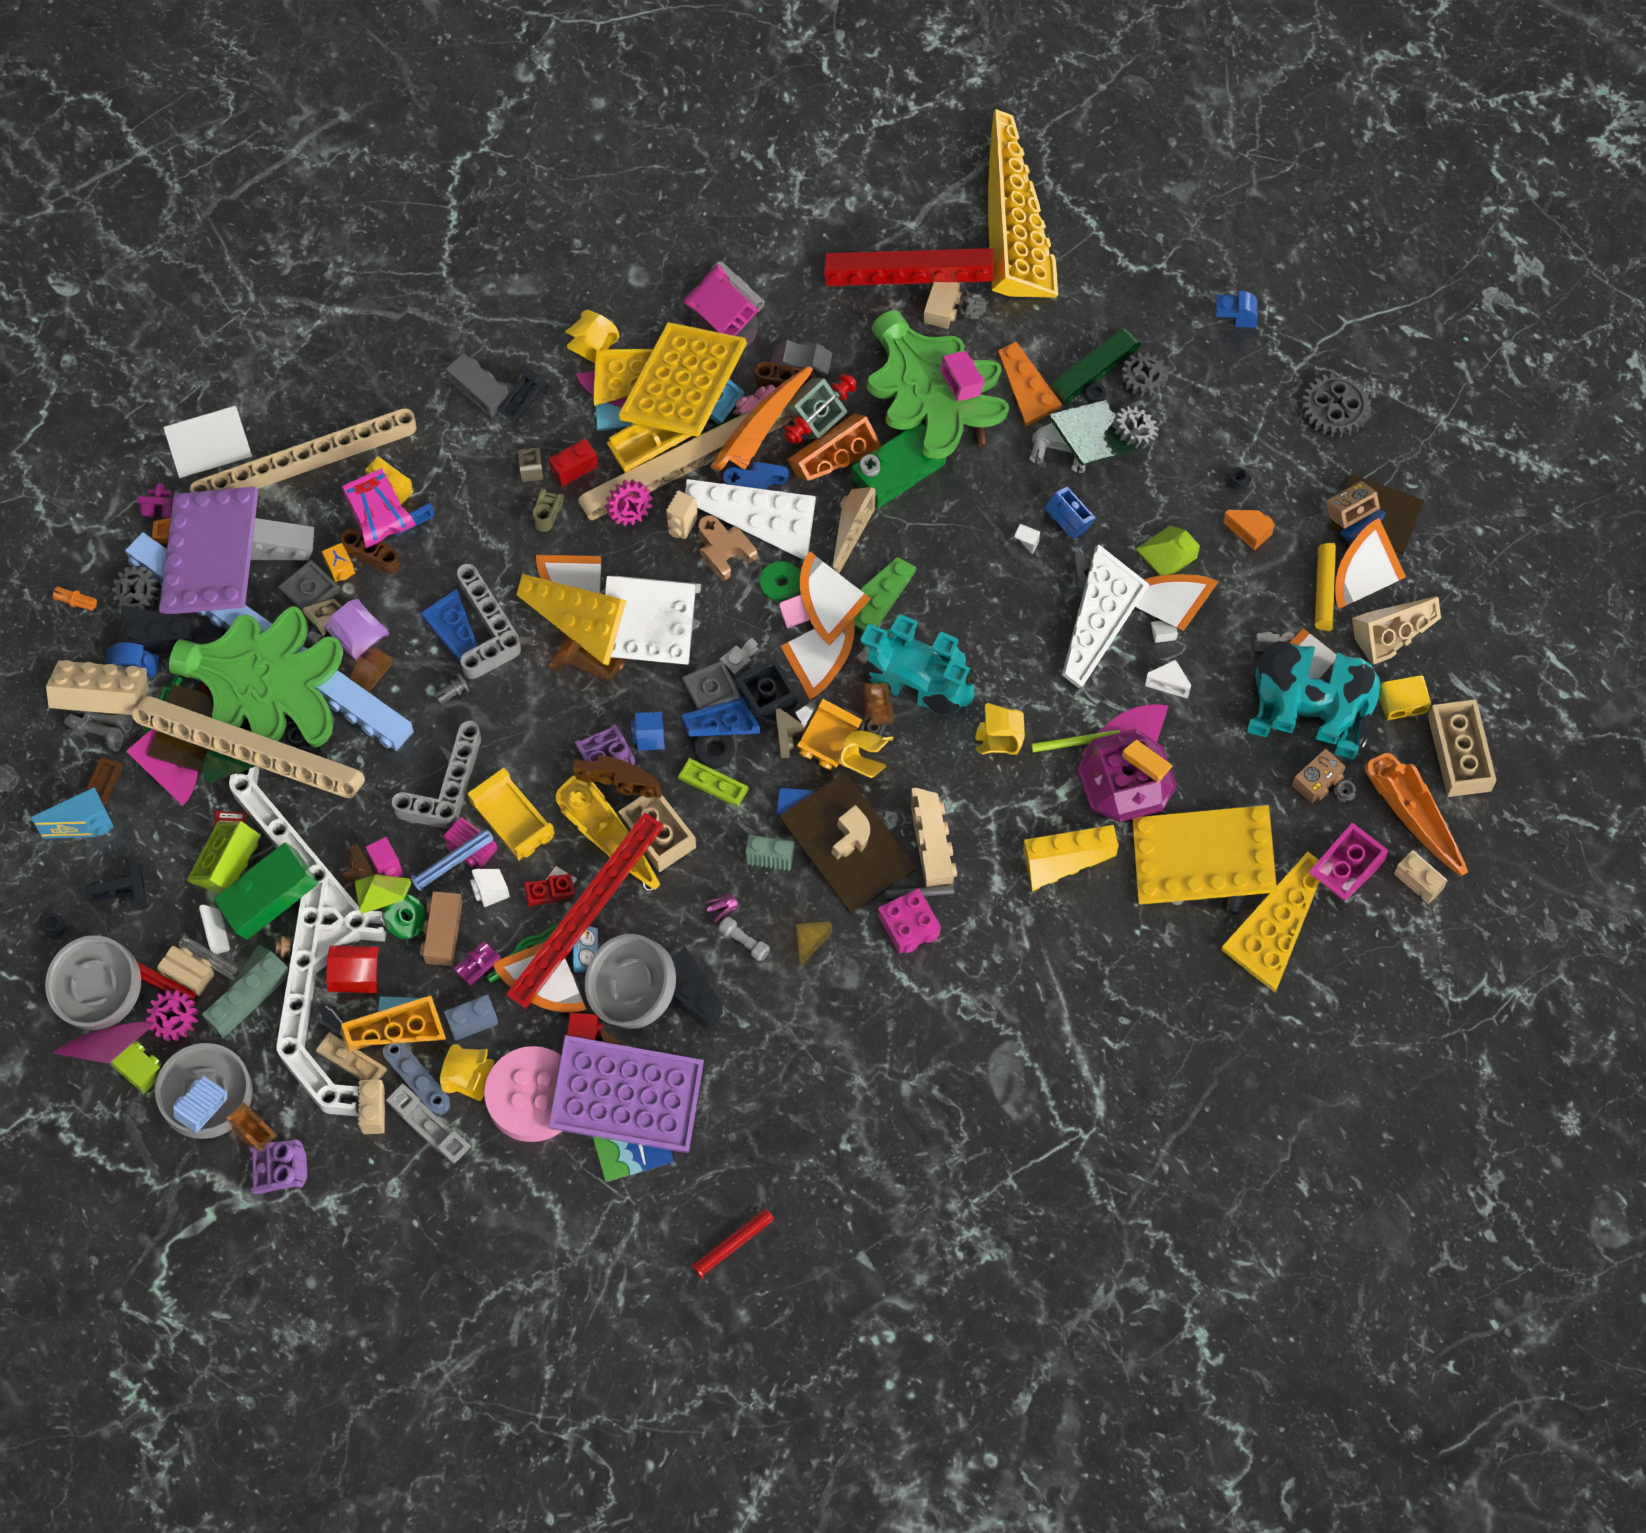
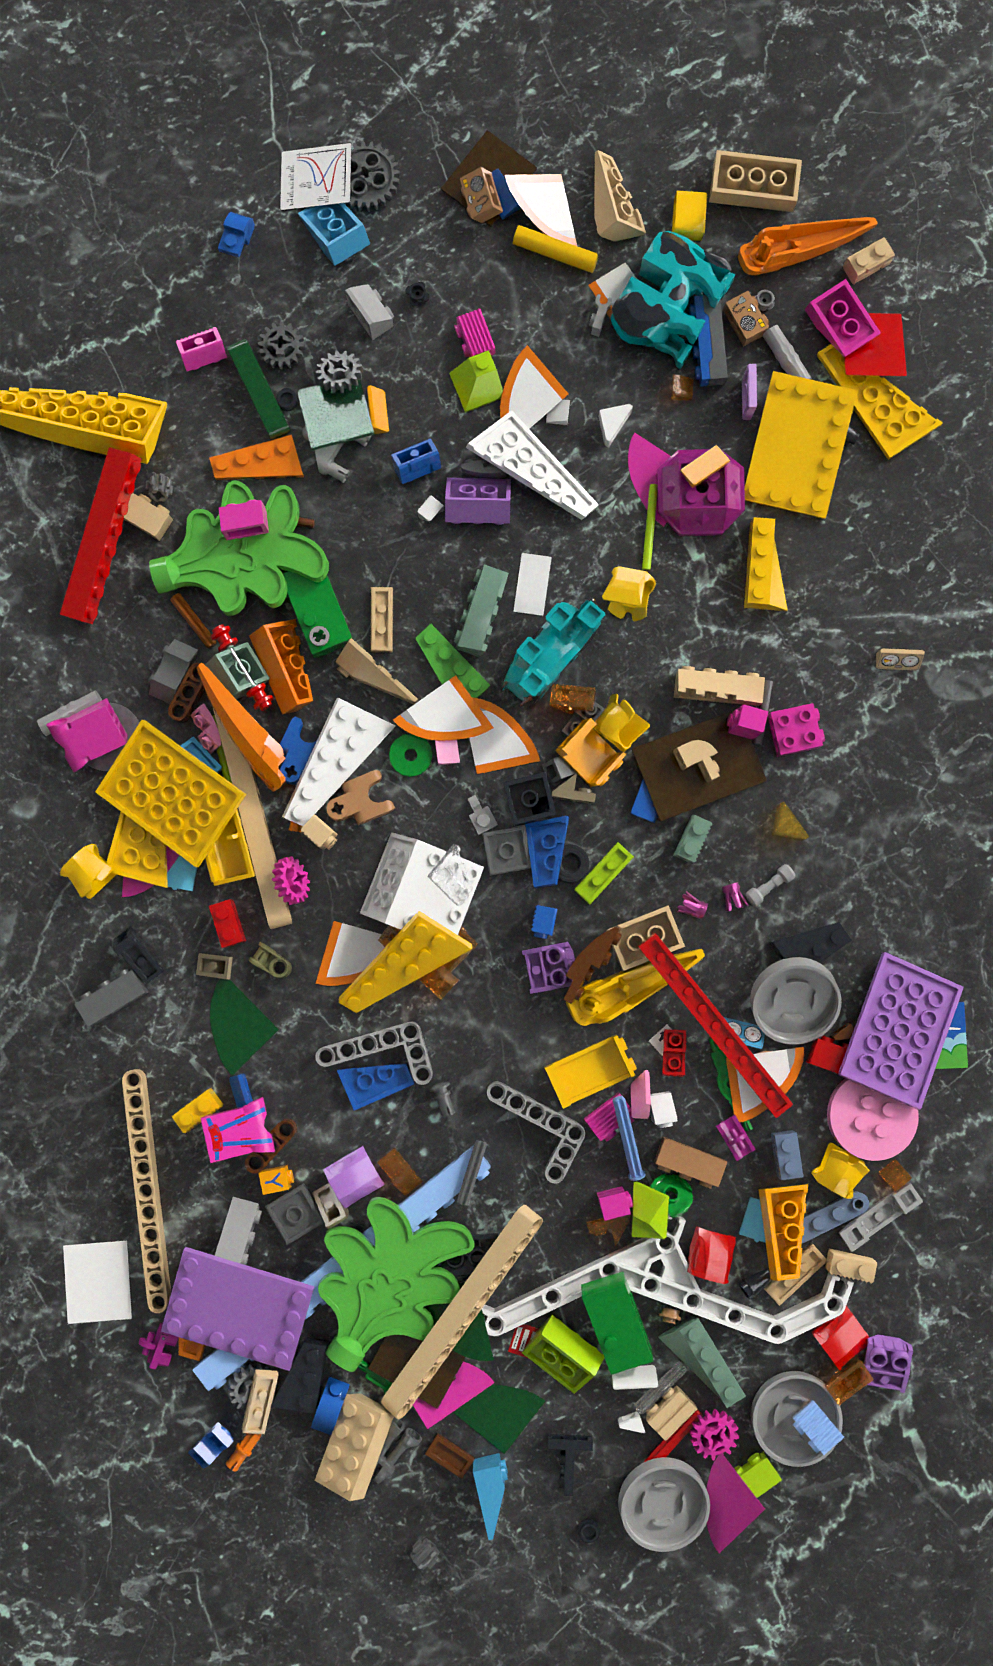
camera: 75 degrees left, 20 degrees up
(74, 569) = (211, 1445): none -> brick
(124, 594) = (259, 1401): none -> tan tile
(153, 818) = (500, 1413): none -> dark green sticker
(168, 937) = (631, 1422): none -> white slope
(294, 1115) = (841, 1338): none -> slope
(384, 724) = (471, 1172): none -> dark grey axle
(475, 1132) = (895, 1175): none -> clear orange slope
(478, 499) = (237, 1025): none -> dark green sticker
(504, 865) = (640, 1096): none -> bright pink slope
(699, 875) = (694, 906): none -> flat silver piece
(861, 360) = (193, 620): none -> dark orange axle
(902, 868) = (747, 721): none -> dark pink brick
(906, 525) = (381, 619): none -> tan tile
(942, 606) = (481, 610): none -> sand green wedge
(988, 649) = (532, 584): none -> white sticker
(1014, 1008) = (899, 659): none -> slope
(1050, 577) = (477, 500): none -> medium lavender slope
(1110, 470) = (378, 409): none -> light orange slope
(1115, 306) = (201, 349): none -> dark pink brick
(1204, 437) = (369, 310): none -> light grey slope
(1215, 535) = (474, 334): none -> dark pink brick
(1227, 735) = (681, 388): none -> clear orange slope
(1241, 792) = (749, 392): none -> lavender tile
(1249, 526) = (475, 295): orange slope -> none
(1274, 391) = (335, 230): none -> dark azure slope
(1281, 748) = (709, 344): none -> piece
(1295, 823) = (785, 353): none -> light grey axle
(1319, 362) = (315, 176): none -> white sticker
(1328, 913) = (882, 354): none -> red sticker

